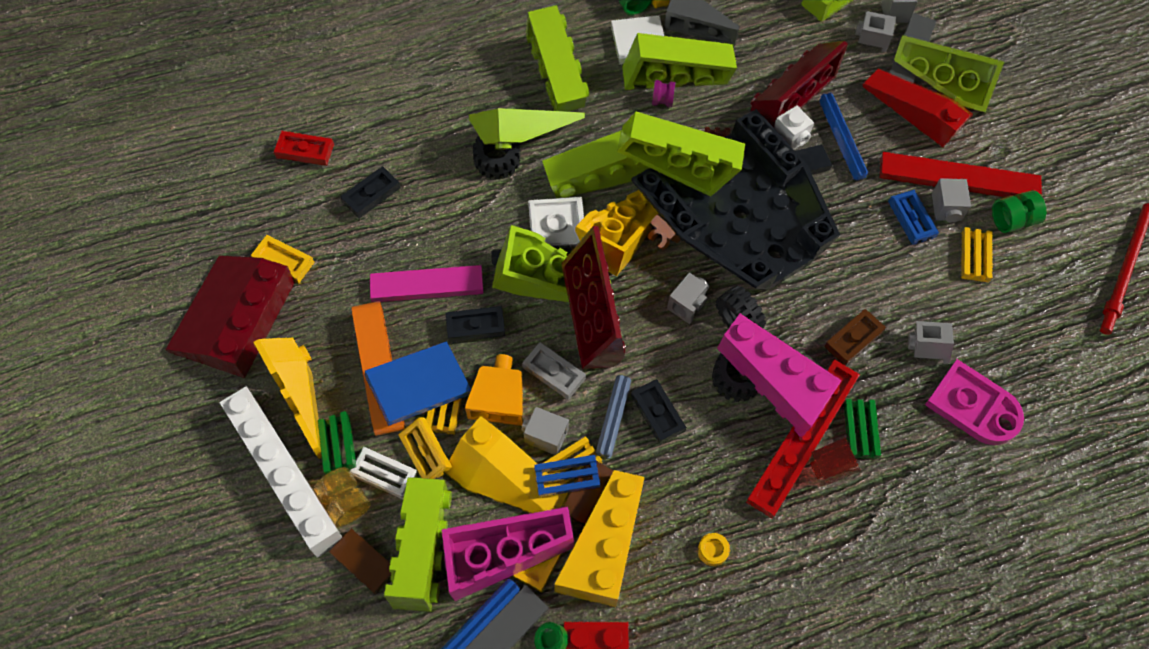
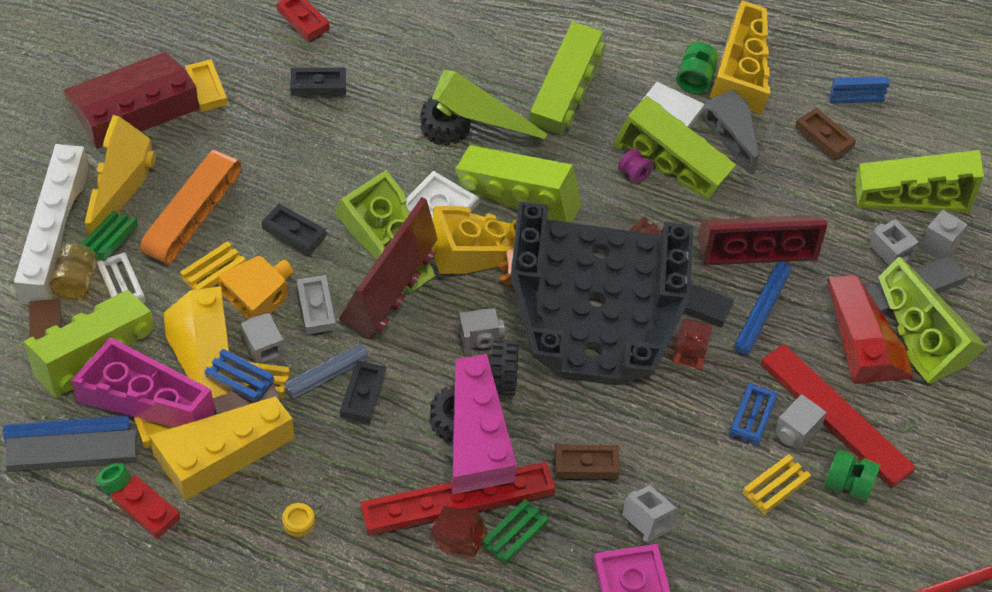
camera: 40 degrees right, 10 degrees down
(417, 383) = (202, 233): blue tile -> none
(426, 283) = (291, 176): dark pink tile -> none
(428, 447) = (164, 285): yellow tile -> none
(681, 152) = (572, 204): lime wedge -> none
(794, 127) = (717, 268): white brick -> none
(837, 193) = (692, 343): none -> clear red brick

